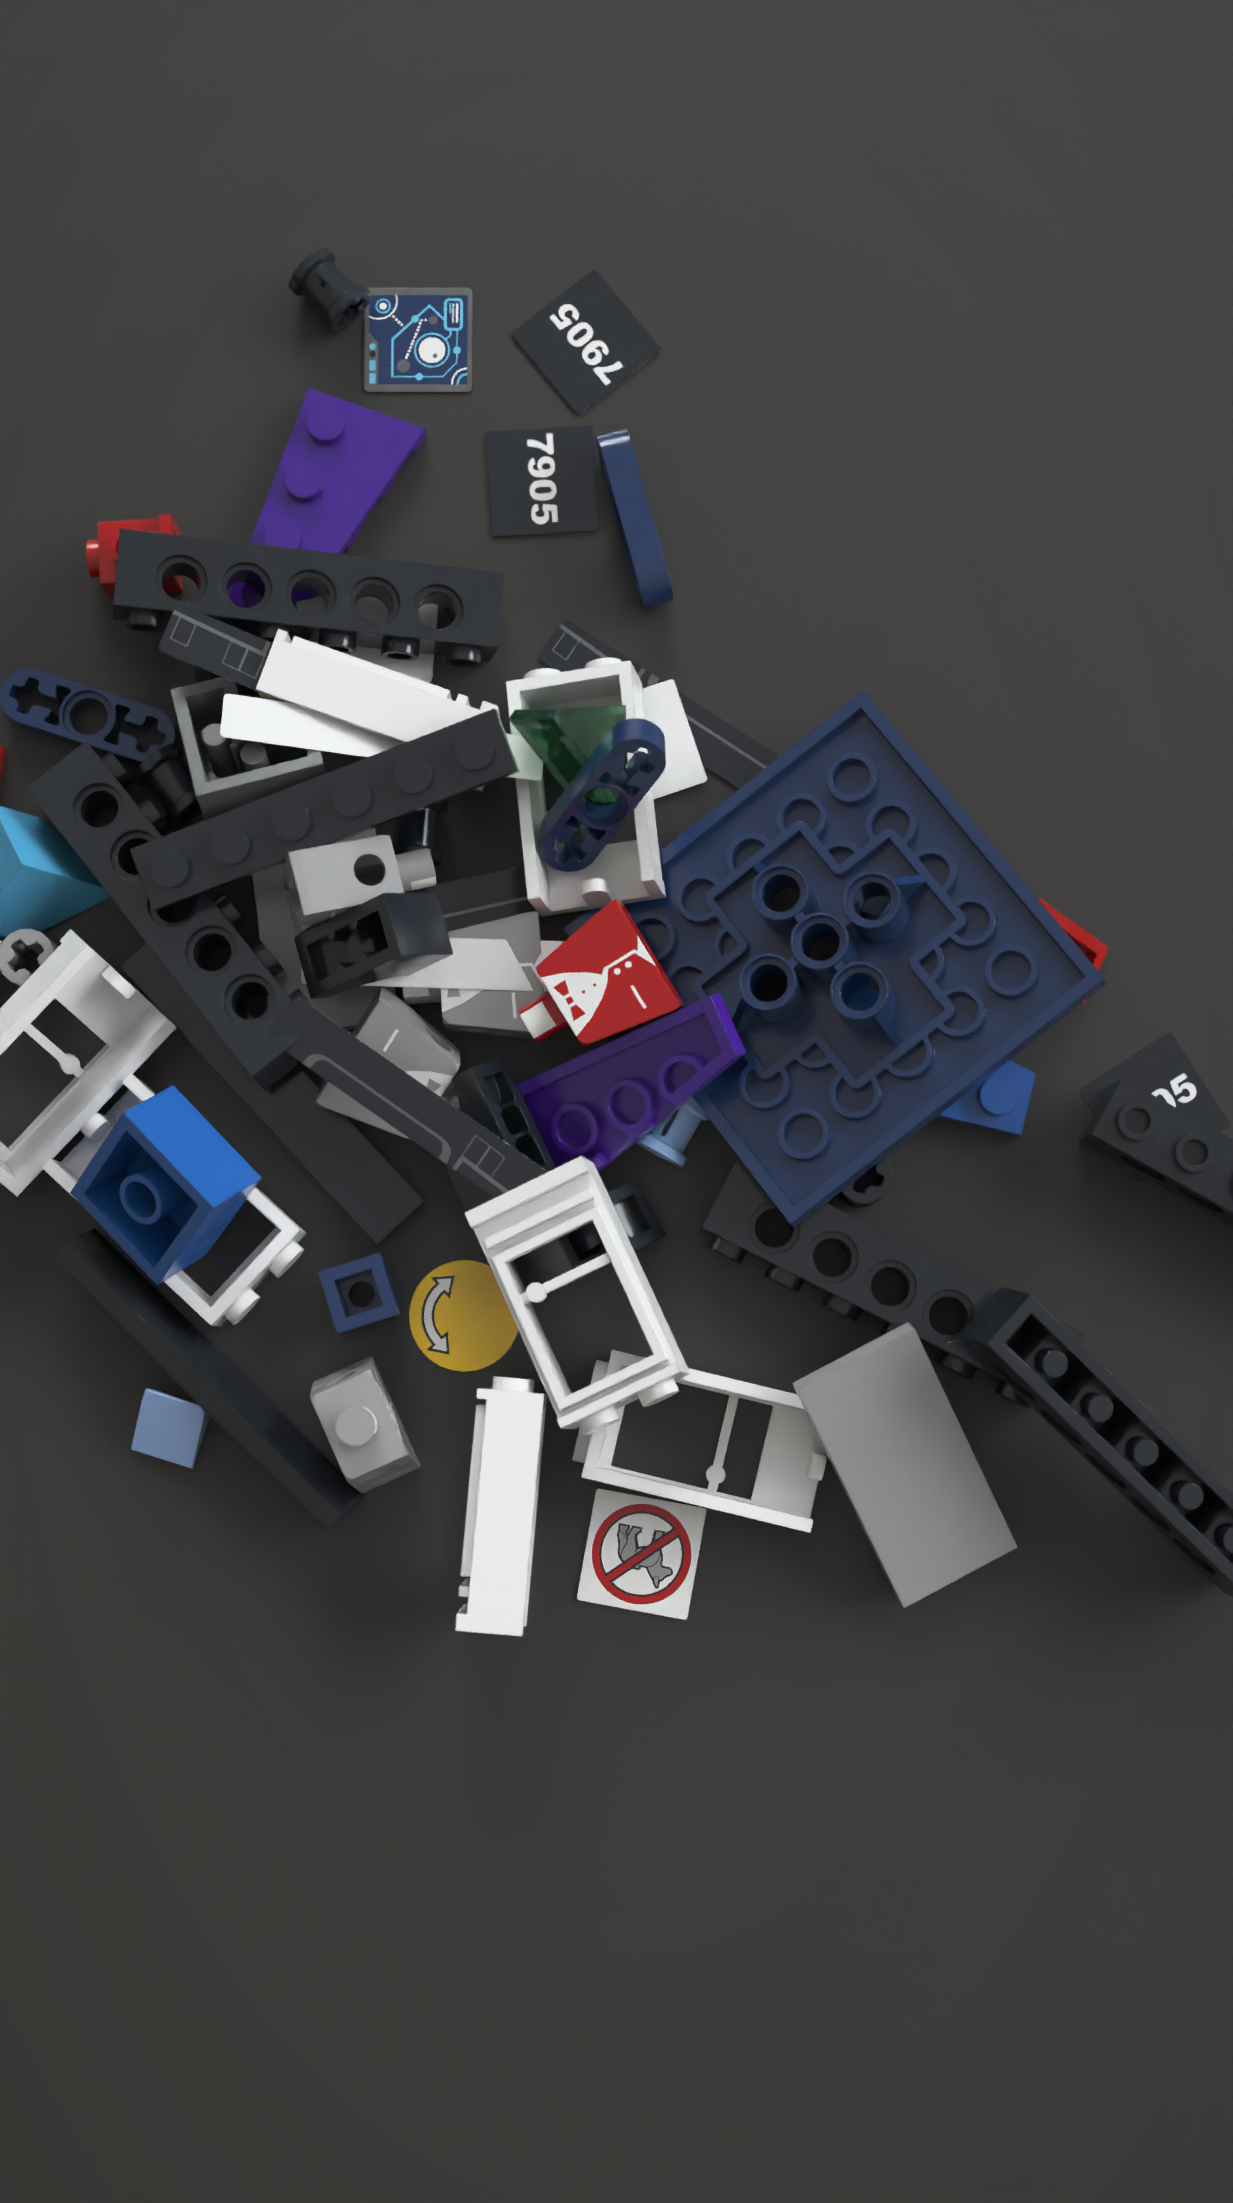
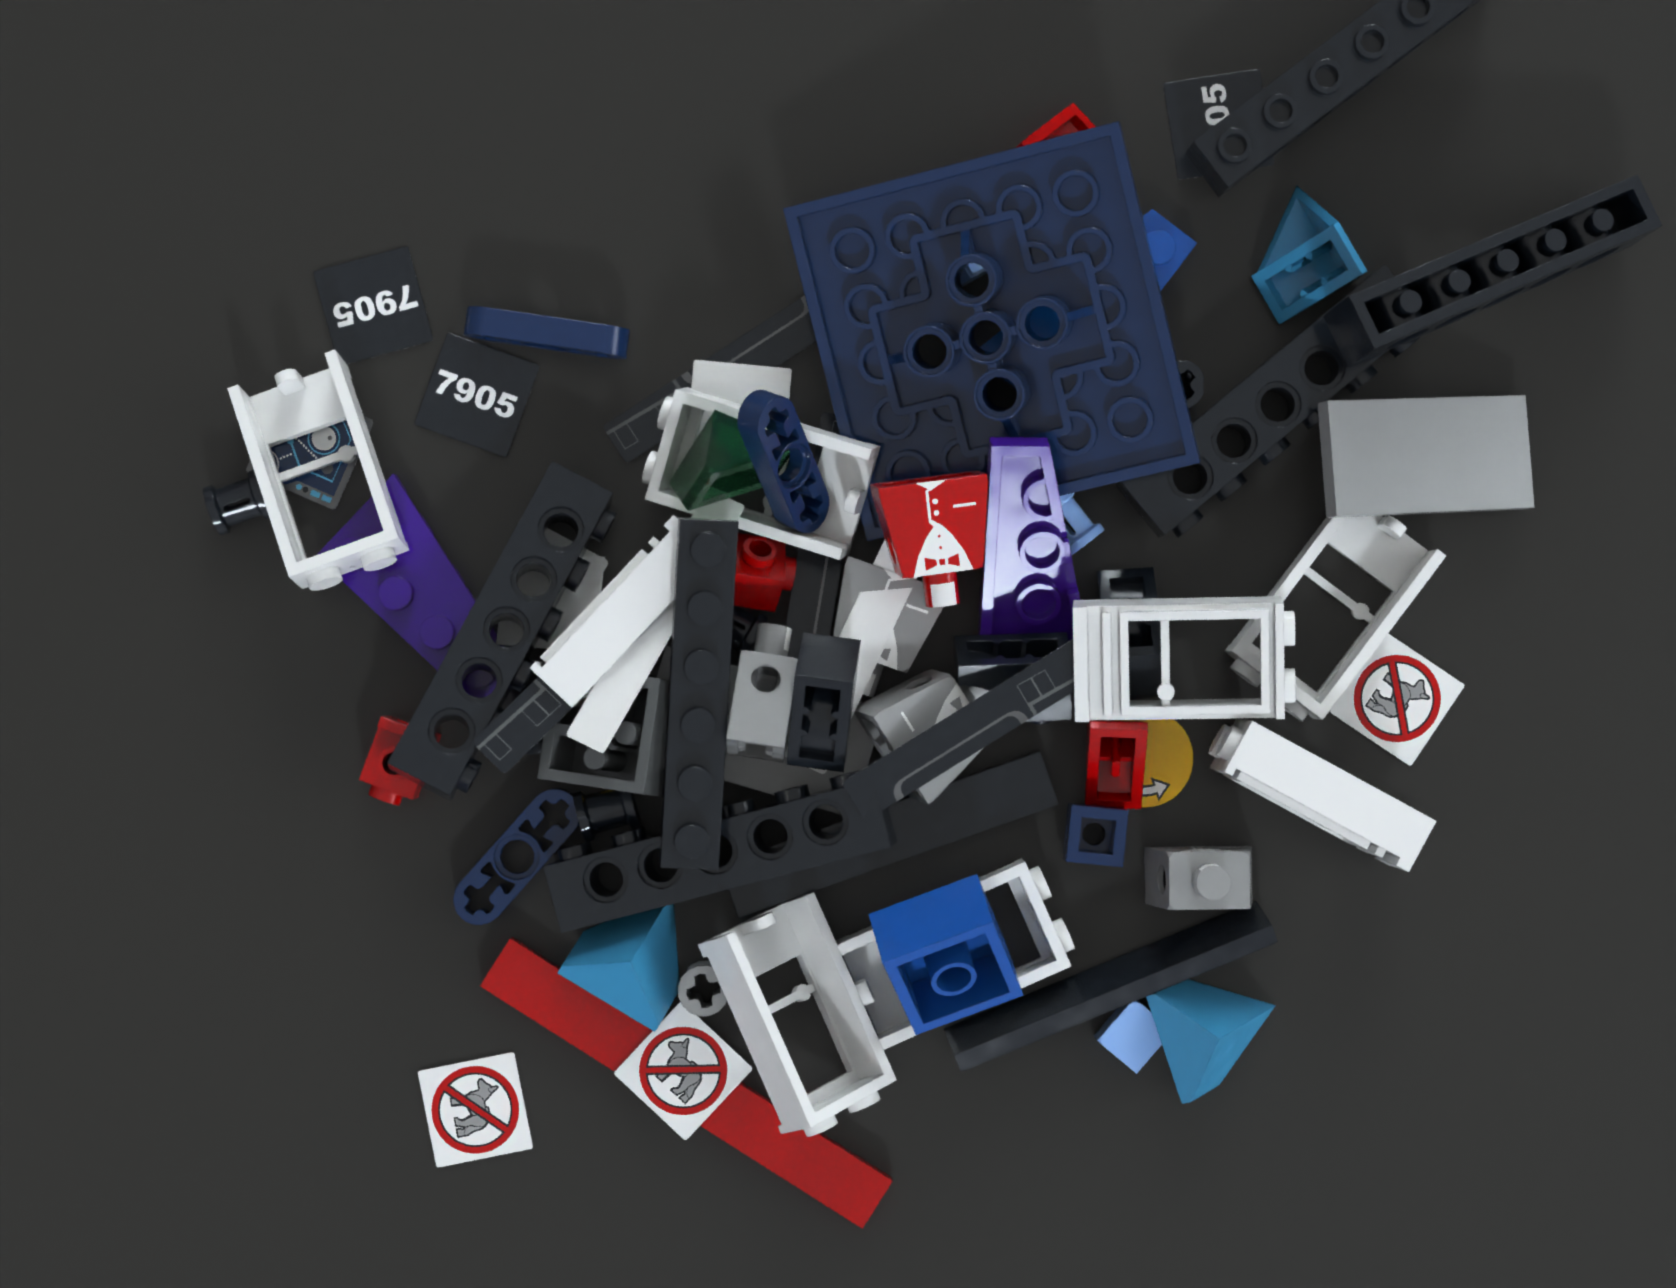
camera: 70 degrees left, 5 degrees up
(202, 1499) = (1204, 1032): none -> dark azure slope
(440, 300) = (291, 411): none -> white door
(445, 1283) = (1115, 763): none -> red slope
(481, 825) = (762, 572): none -> red brick
(1052, 1254) = (1306, 259): none -> dark azure slope

